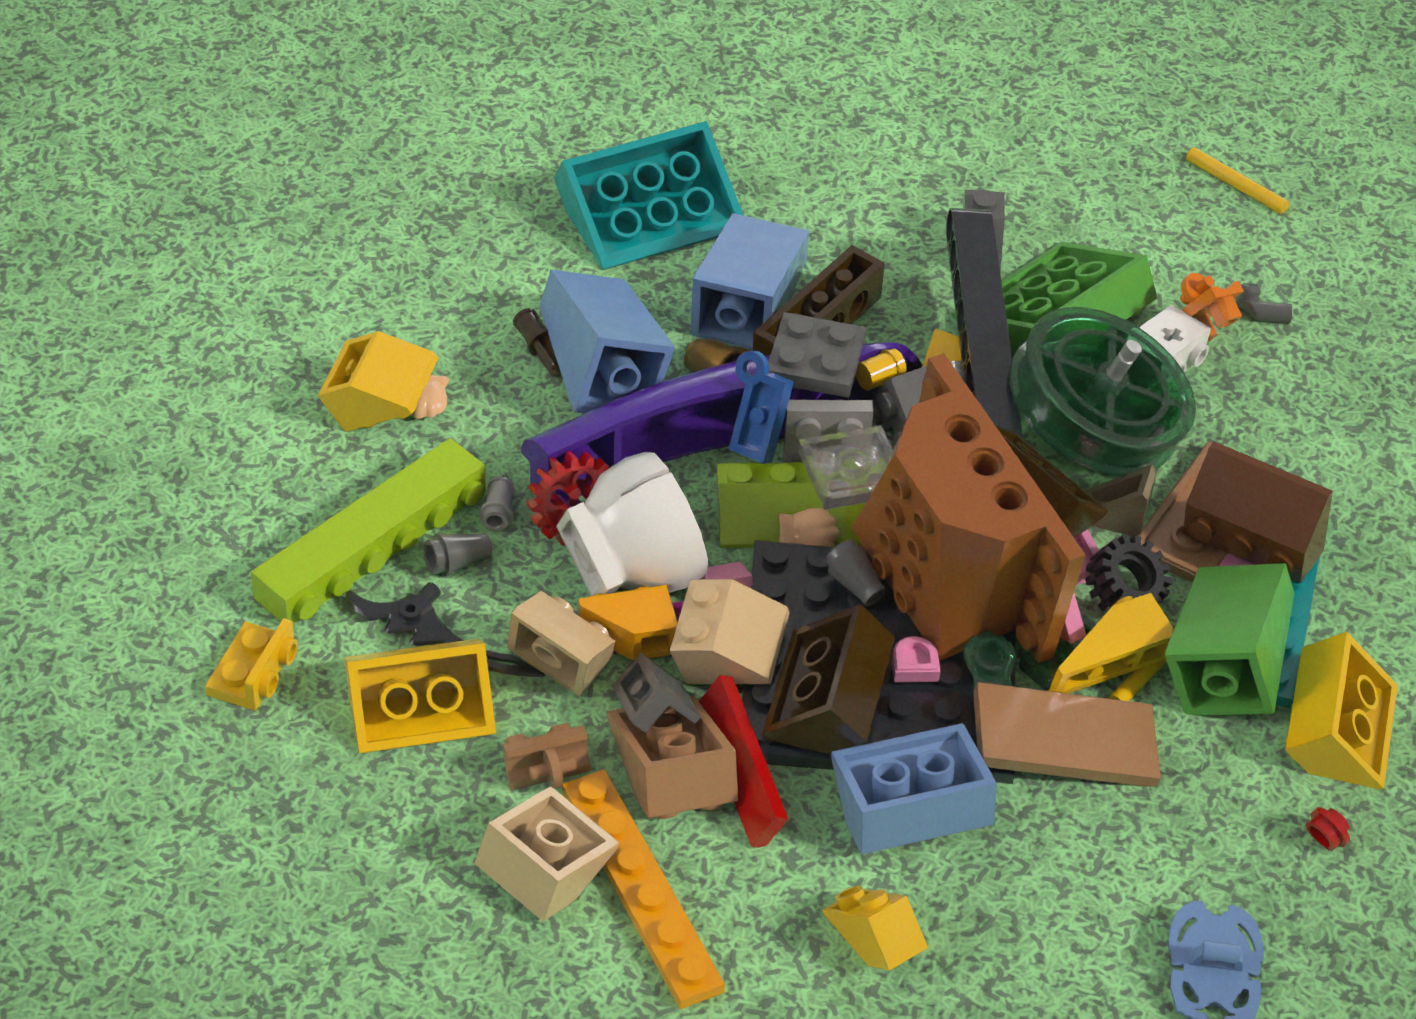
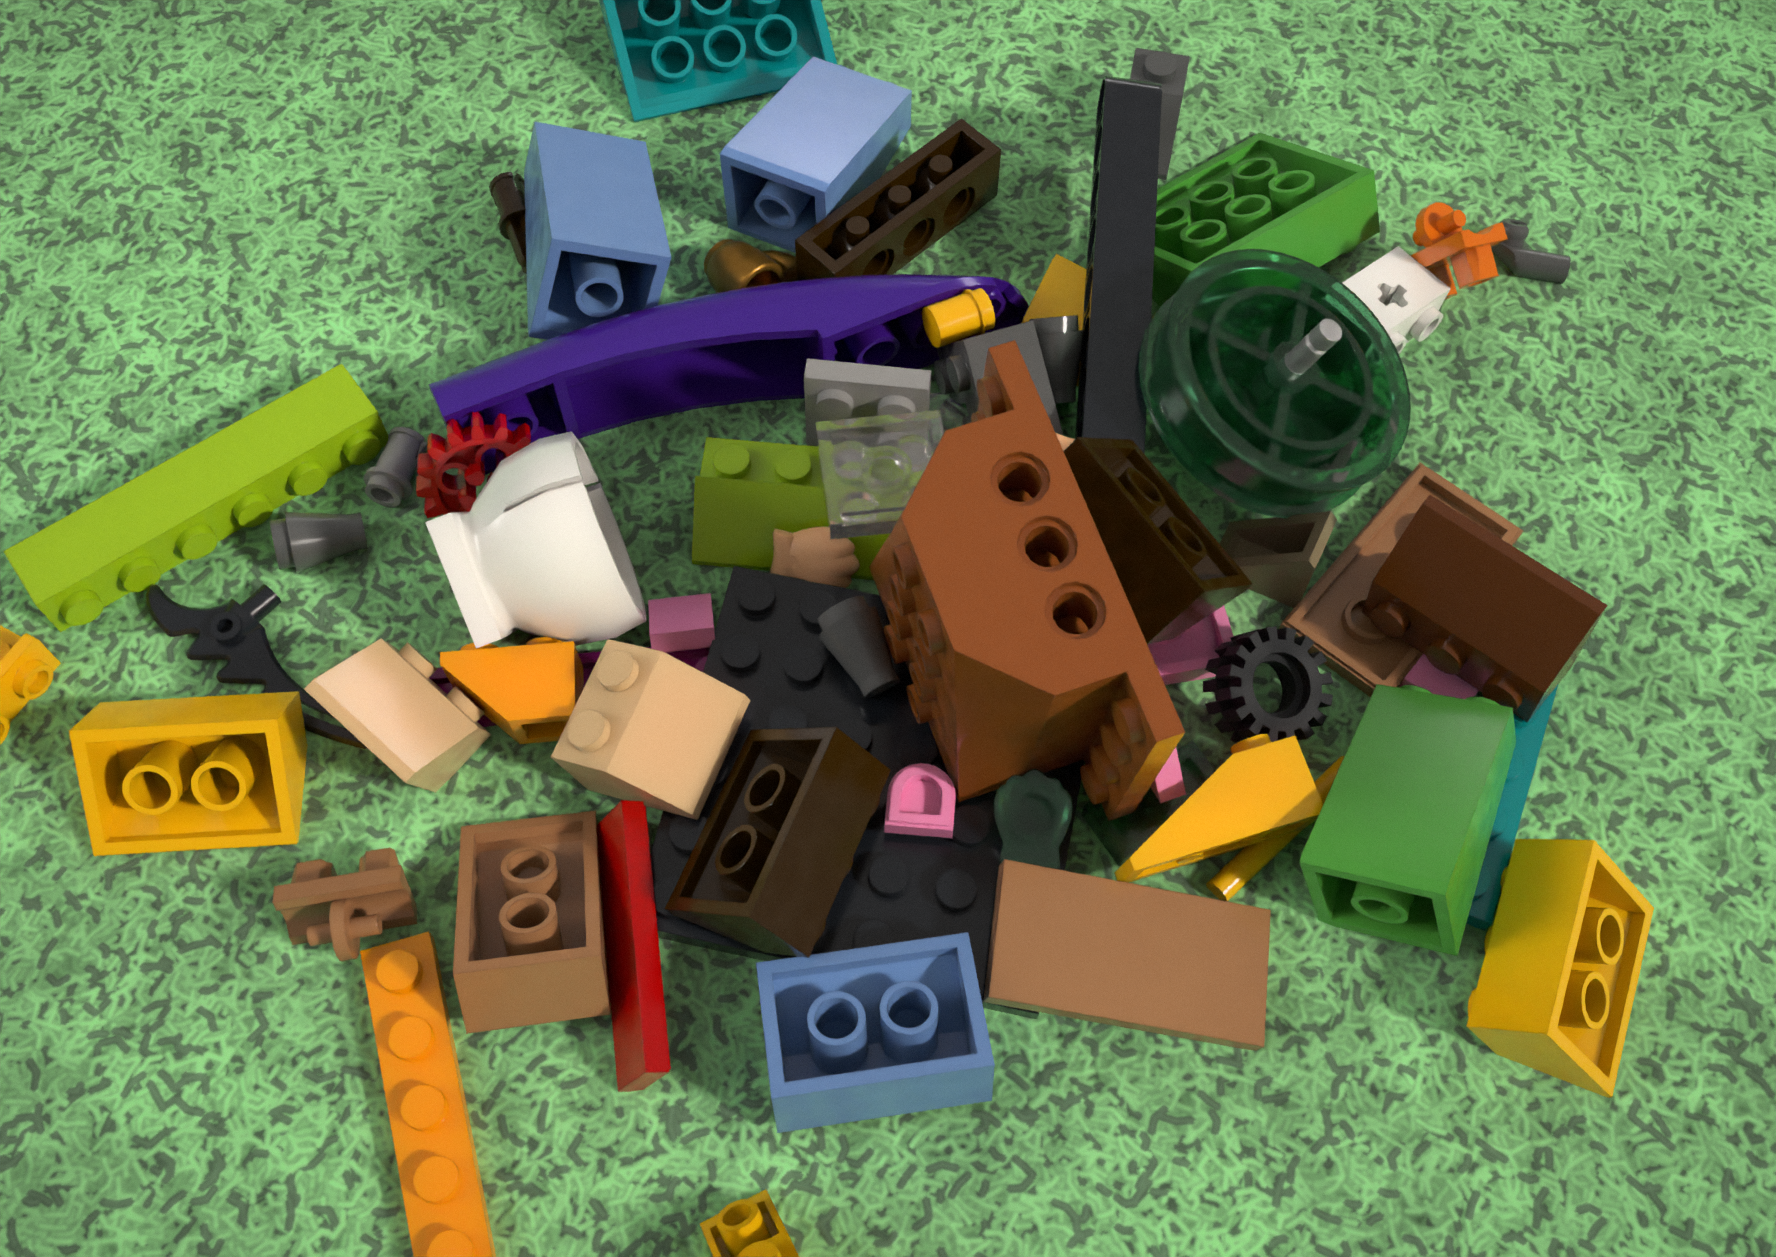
camera: 10 degrees right, 15 degrees up
(376, 380) = (268, 264): yellow slope -> none
(433, 398) = (344, 289): light nougat animal -> none
(544, 852) = (292, 1083): tan slope -> none
(647, 692) = (529, 812): dark grey panel -> none
(760, 409) = (768, 368): blue hinge -> none
(817, 353) = (862, 291): dark grey plate -> none
(1237, 180) = (1517, 63): yellow bar -> none
(1328, 828) = (1517, 1175): red plate -> none

